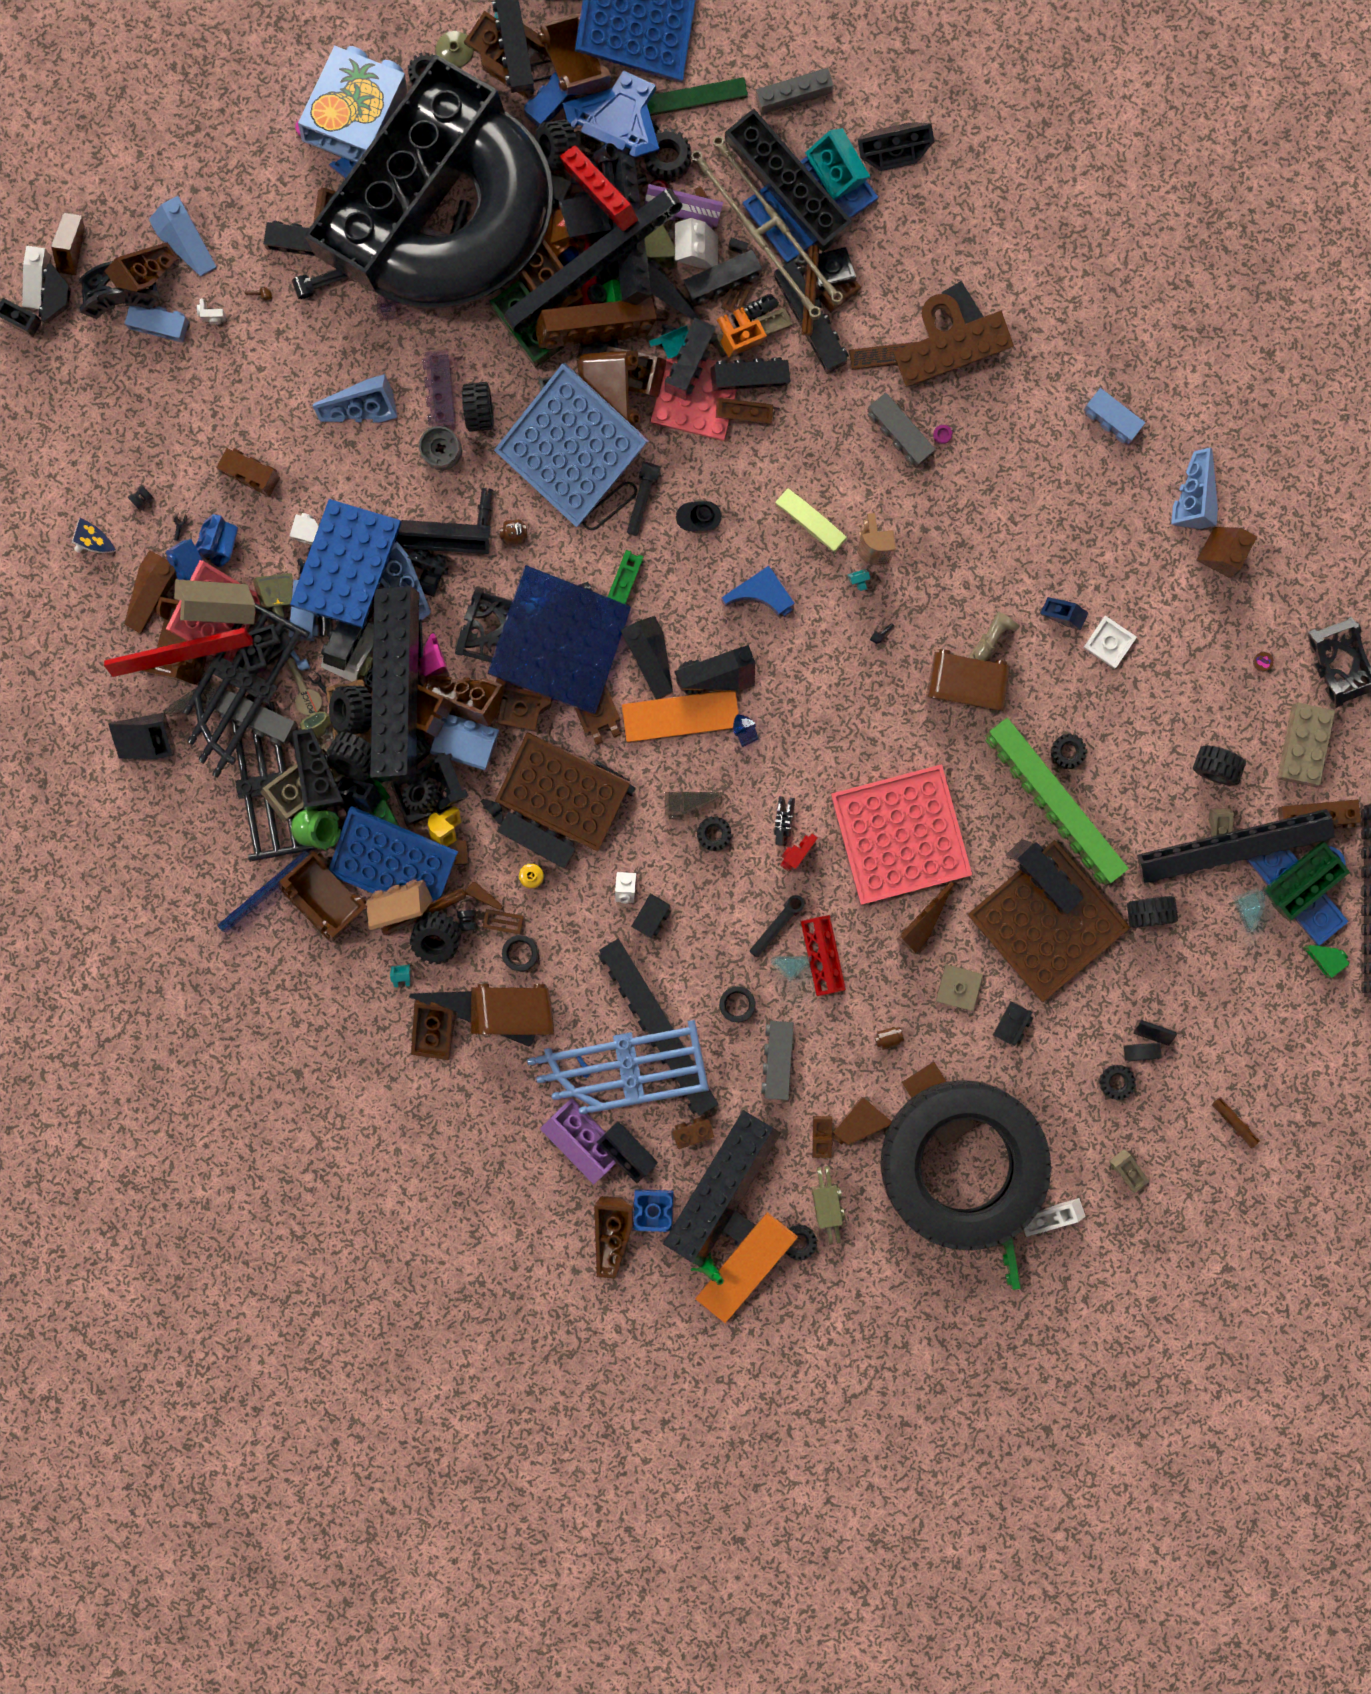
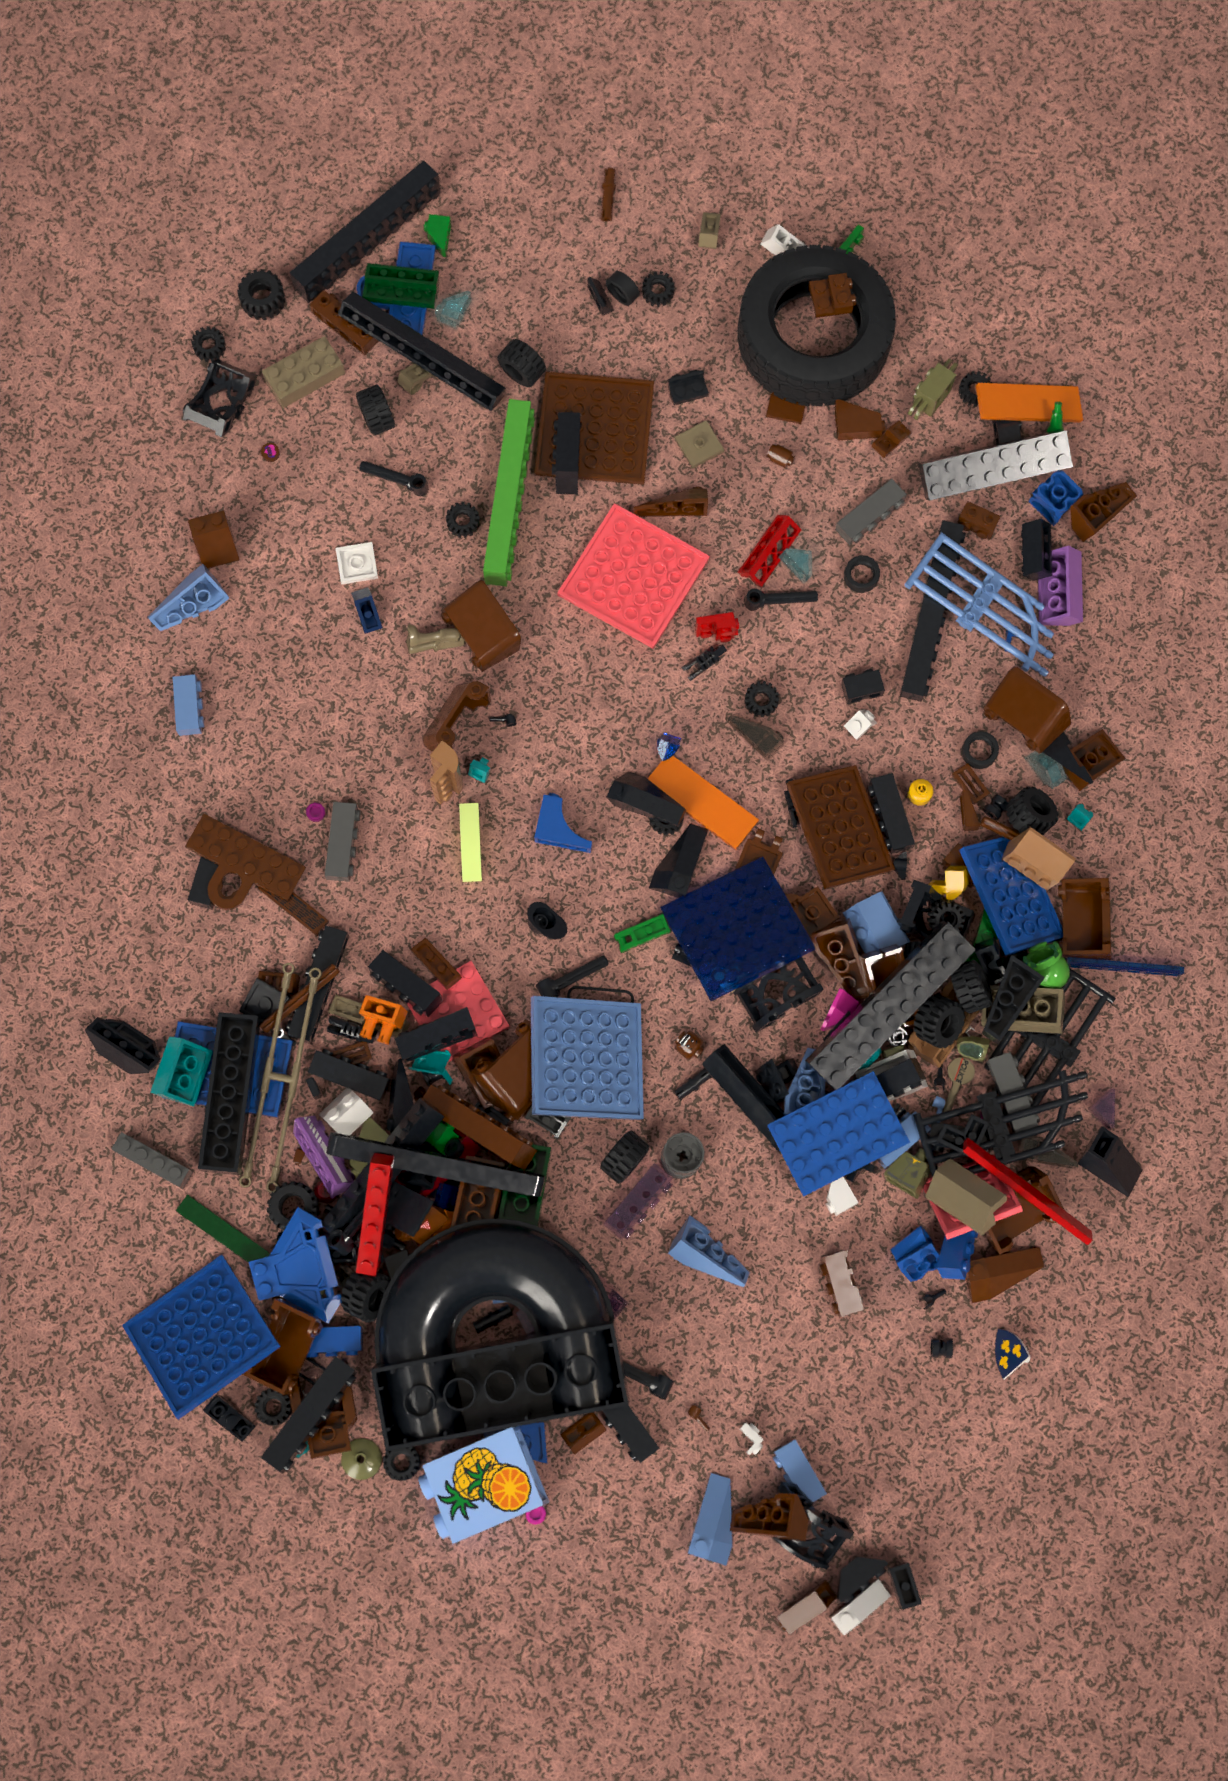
camera: 135 degrees left, 10 degrees down
(184, 773) = (1105, 1109): none -> slope
(455, 984) = (1047, 769): none -> clear light blue slope
(541, 11) = (262, 1413): none -> black tyre
(927, 617) = (464, 695): none -> reddish brown windscreen
(971, 1189) = (832, 295): none -> reddish brown plate
(1151, 734) = (396, 477): none -> black axle

